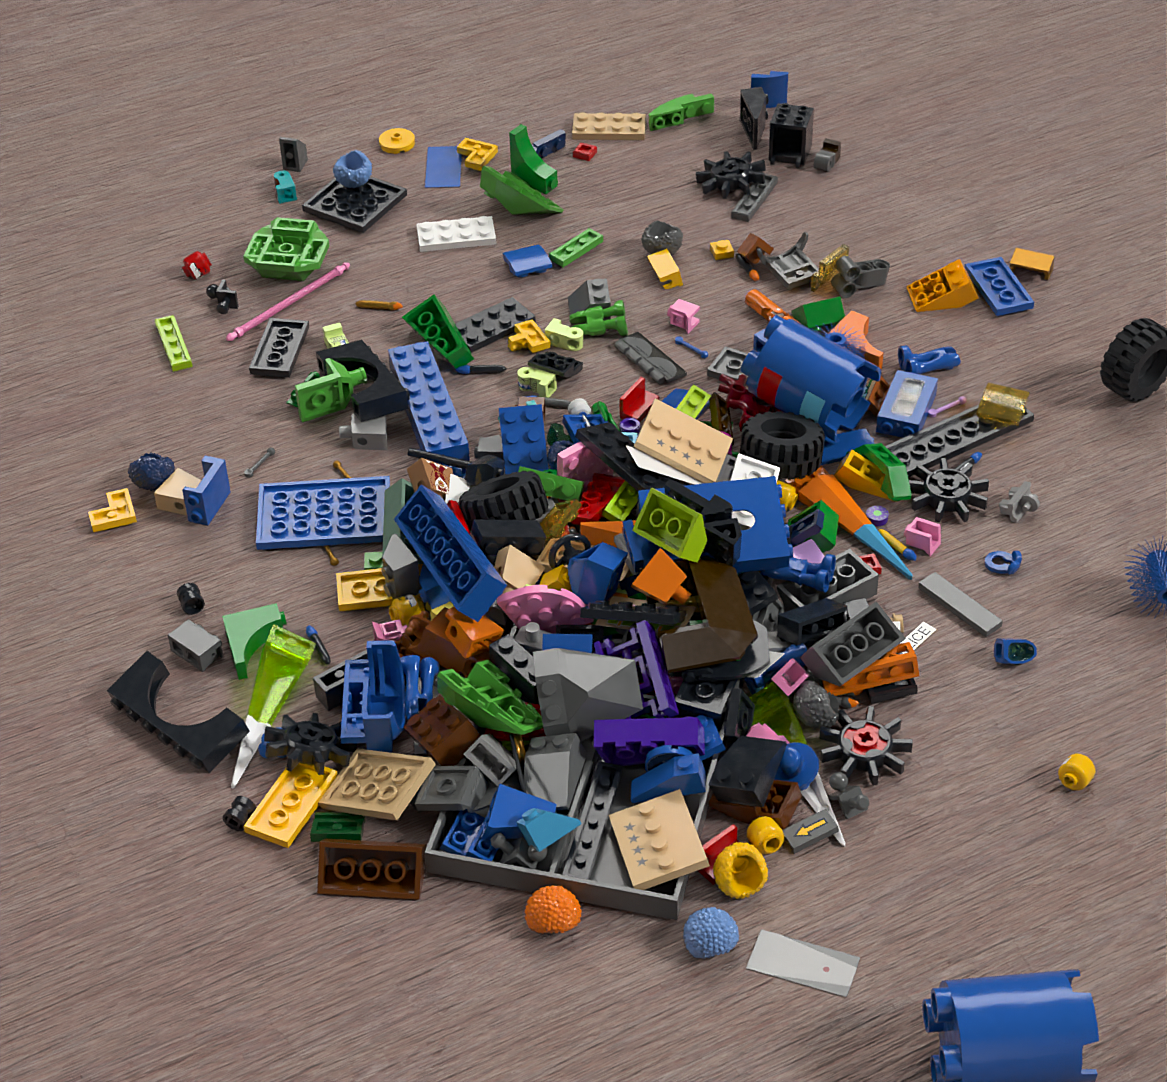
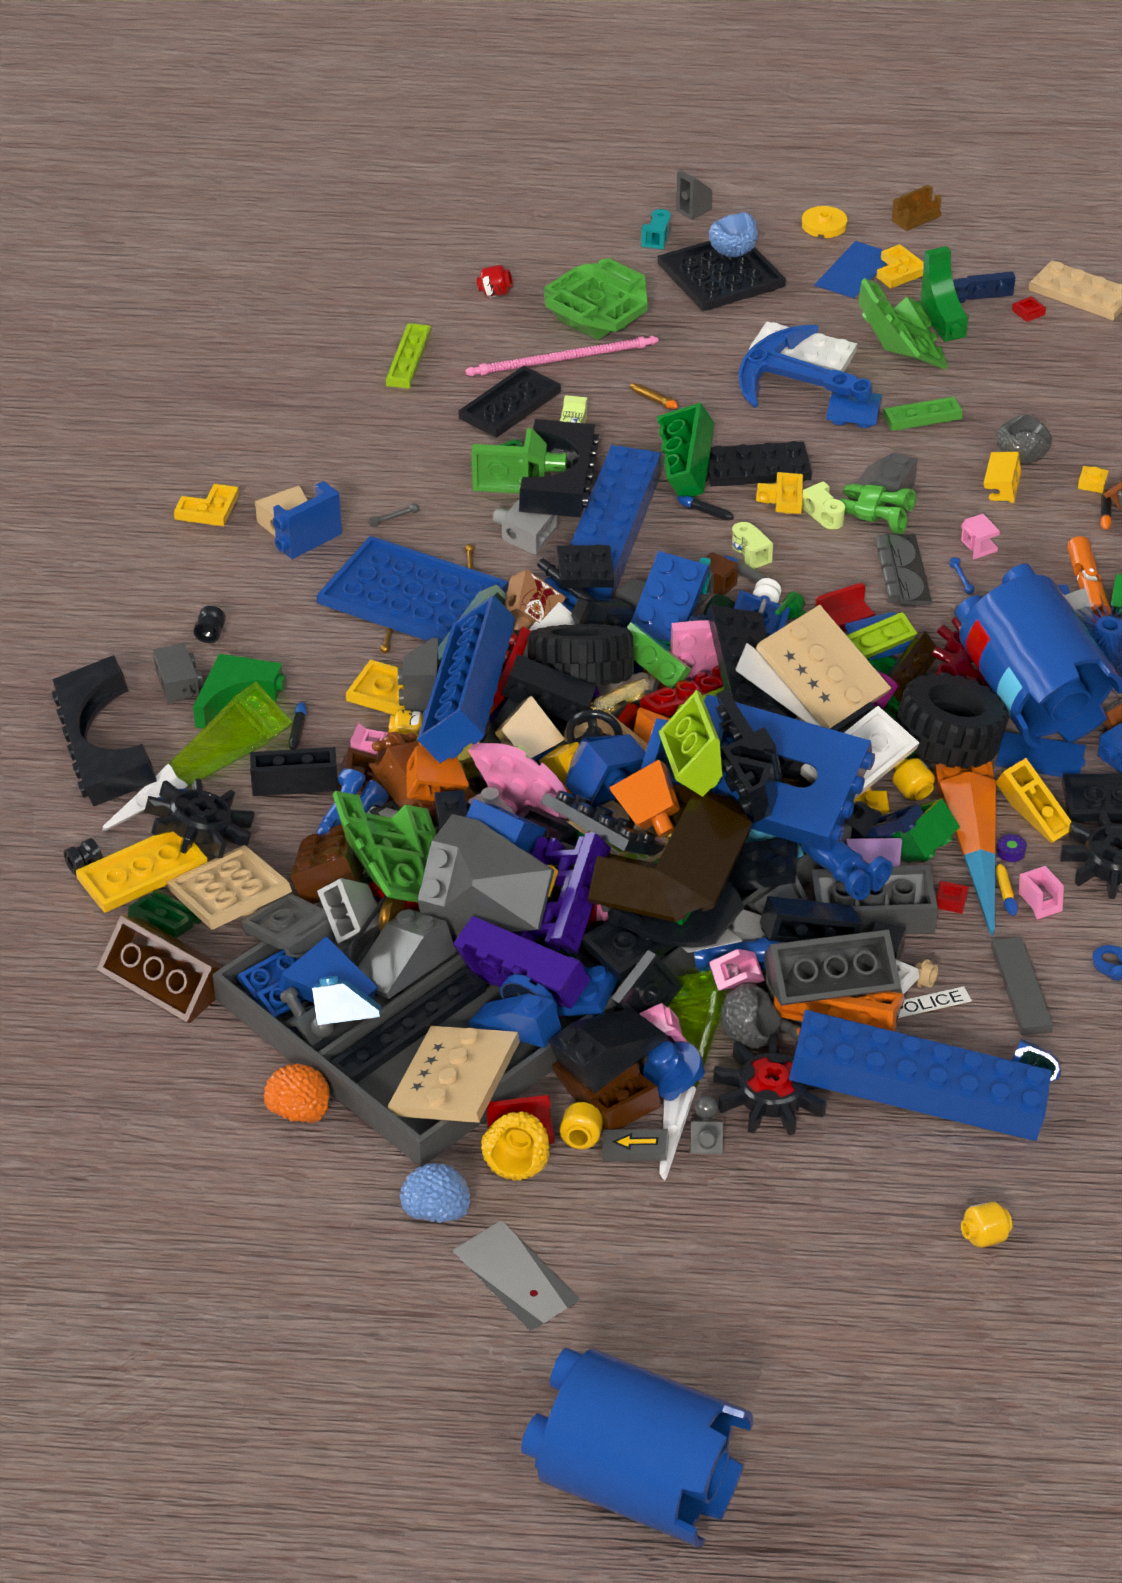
camera: 30 degrees right, 0 degrees up
(150, 471) = (270, 476): dark blue hair -> none
(225, 297) = (496, 325): black piece -> none
(375, 711) = (276, 811): blue piece -> none
(438, 247) = (766, 357): none -> blue piece
(447, 441) = (585, 566): none -> black plate
(455, 110) = (916, 208): none -> pearl gold hinge
(556, 364) = (786, 534): black slope -> none
(896, 480) = (1059, 800): green slope -> none
(958, 692) = (921, 1075): none -> blue brick

